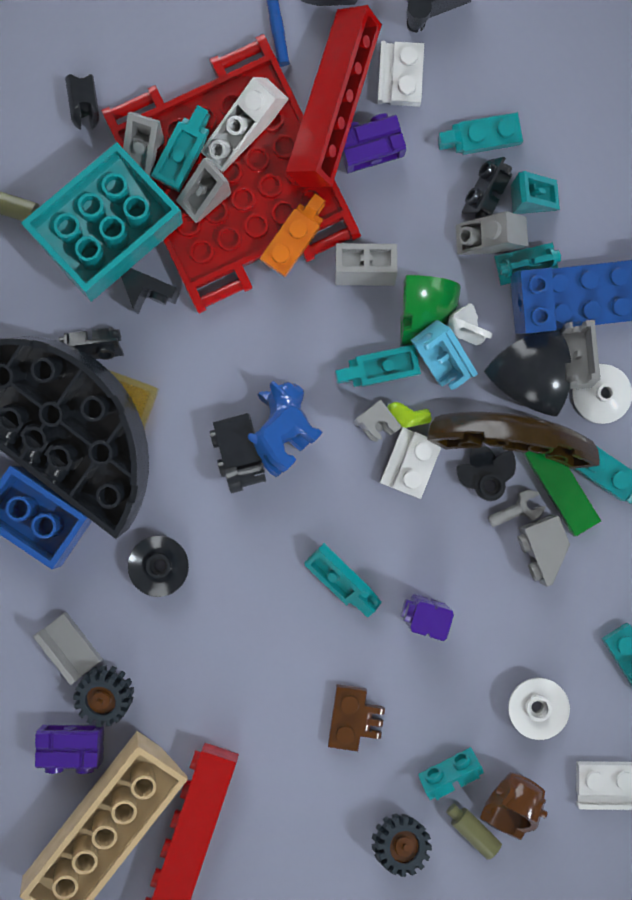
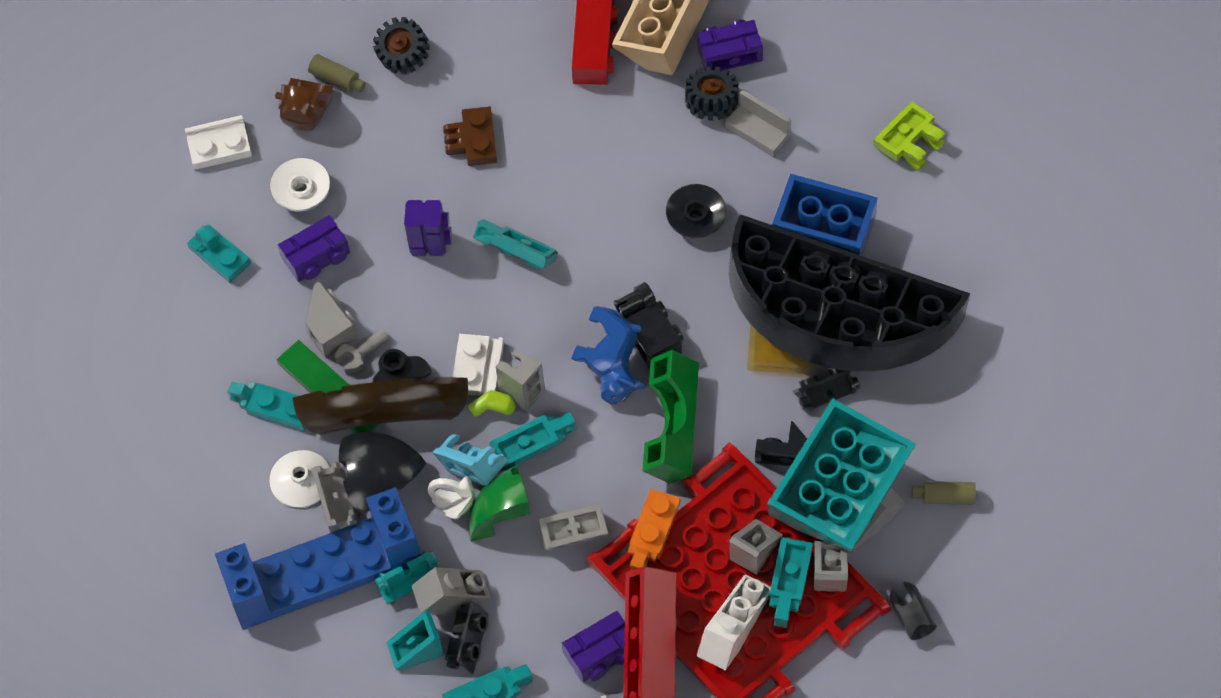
camera: 175 degrees right, 25 degrees down
(254, 314) = (675, 383): none -> green arch
(439, 778) = (370, 115): teal hinge -> none
(540, 630) = (314, 249): none -> dark purple brick

